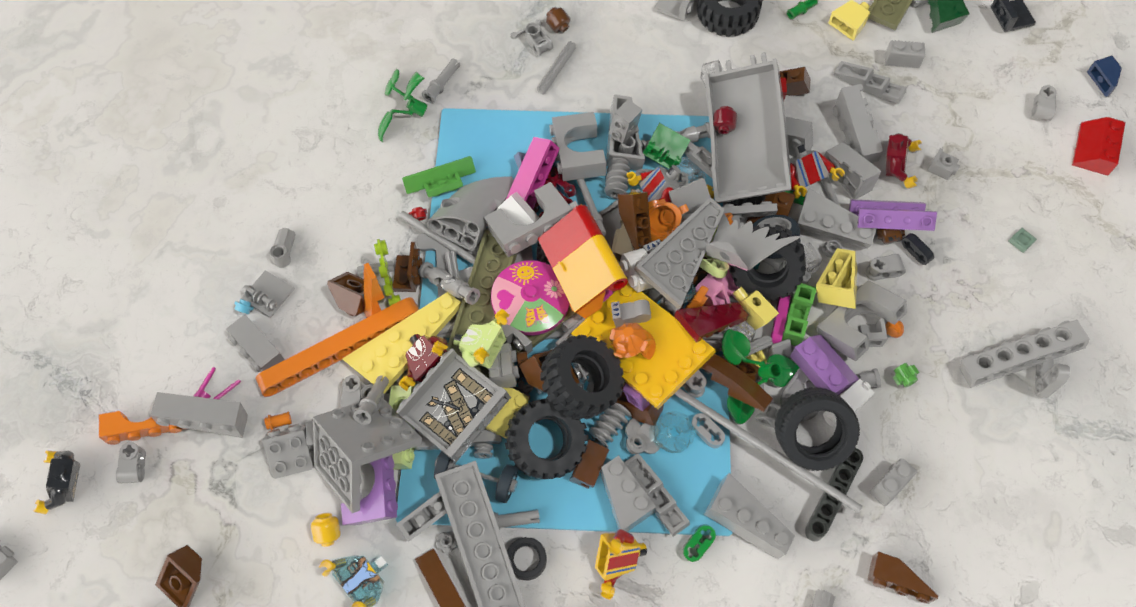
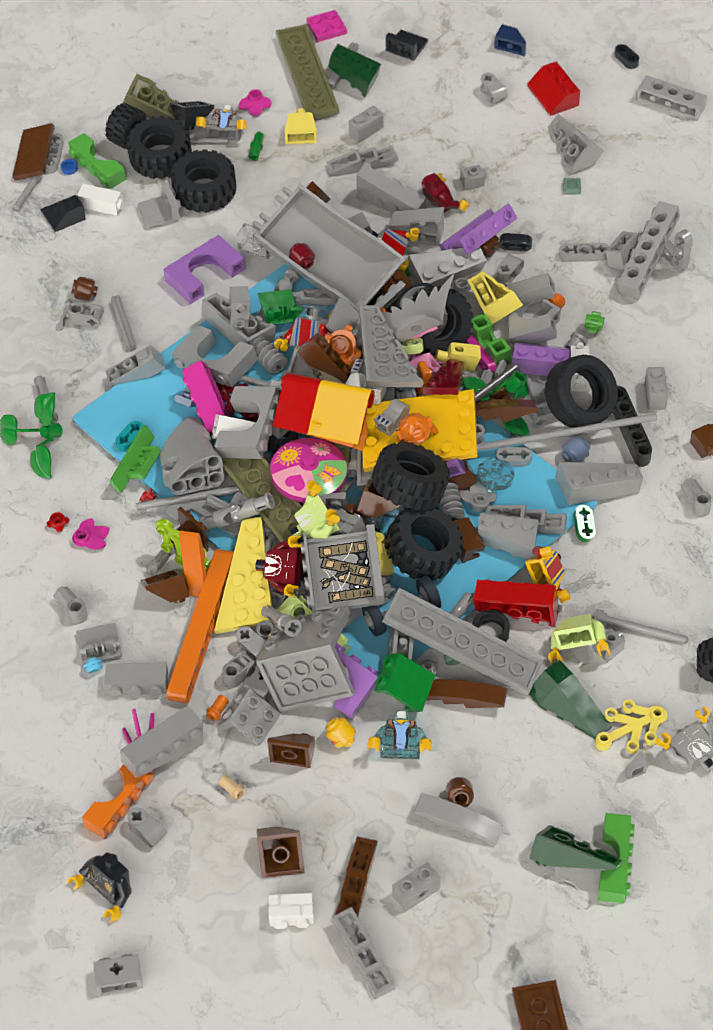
camera: 45 degrees left, 10 degrees down
(216, 491) = (235, 790): none -> tan pin
(281, 508) = (292, 749): none -> reddish brown slope
(325, 402) = (240, 667): none -> light grey piece
(347, 173) = (57, 517): none -> red plate
(357, 209) = (92, 535): none -> dark pink plate
(403, 540) = (405, 681): none -> green panel
(459, 153) = (128, 435): none -> teal beam
(523, 108) = (136, 367): none -> light grey slope
(568, 557) = (518, 600): none -> red wedge
(675, 64) = (214, 252): none -> medium lavender arch
(749, 356) = (495, 382): none -> flat silver bar
(763, 472) = (575, 450): none -> sand blue head
(960, 293) = (571, 248): none -> light grey beam
(997, 332) = (620, 250): none -> light grey brick
(1063, 207) = (573, 146): none -> light grey wedge

